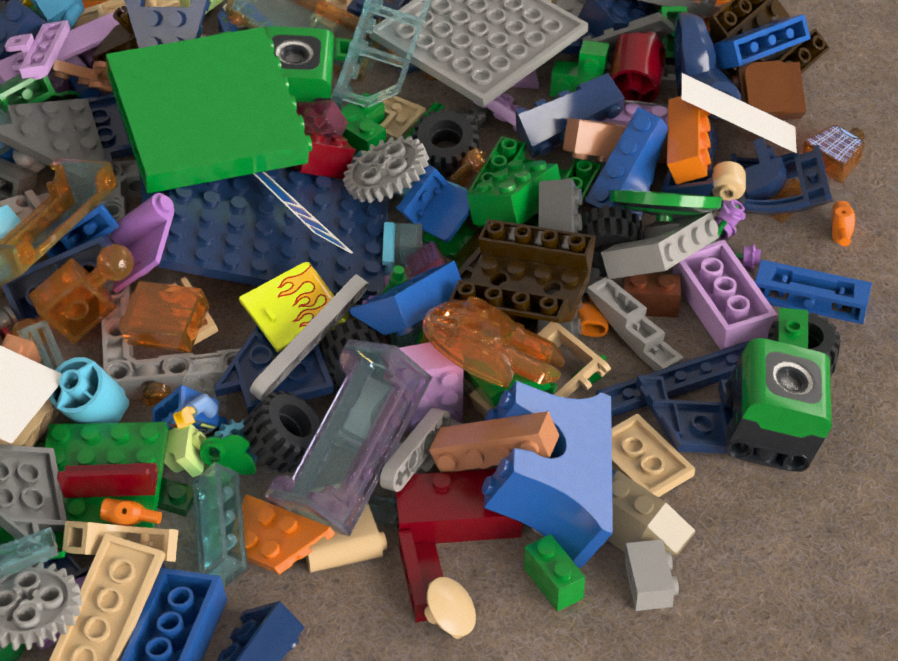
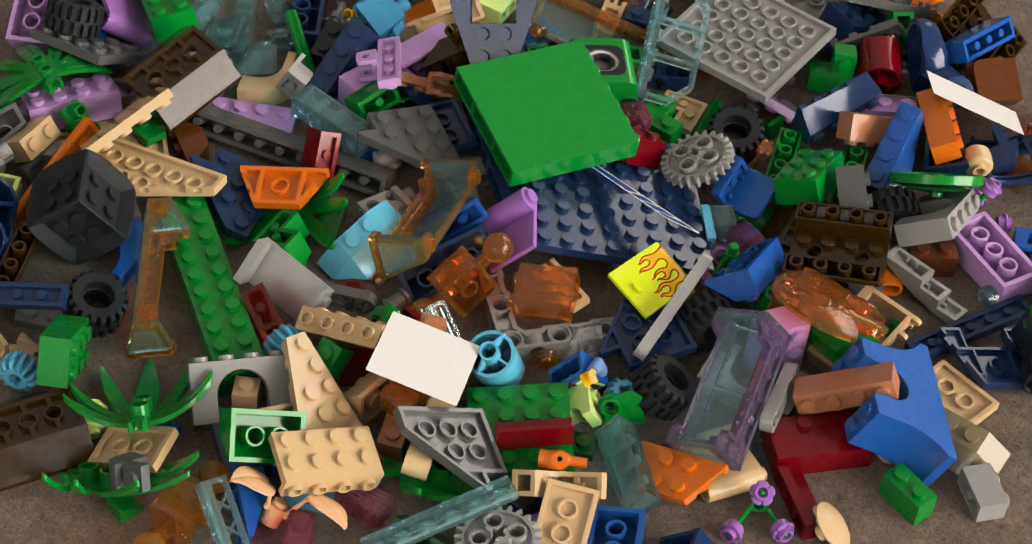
camera: 10 degrees left, 0 degrees up
(367, 570) = (761, 497): none -> medium lavender plant
(387, 76) = (671, 77): none -> dark blue piece
(491, 138) = (773, 126): none -> green slope
(711, 340) = (988, 296): none -> clear light blue tile

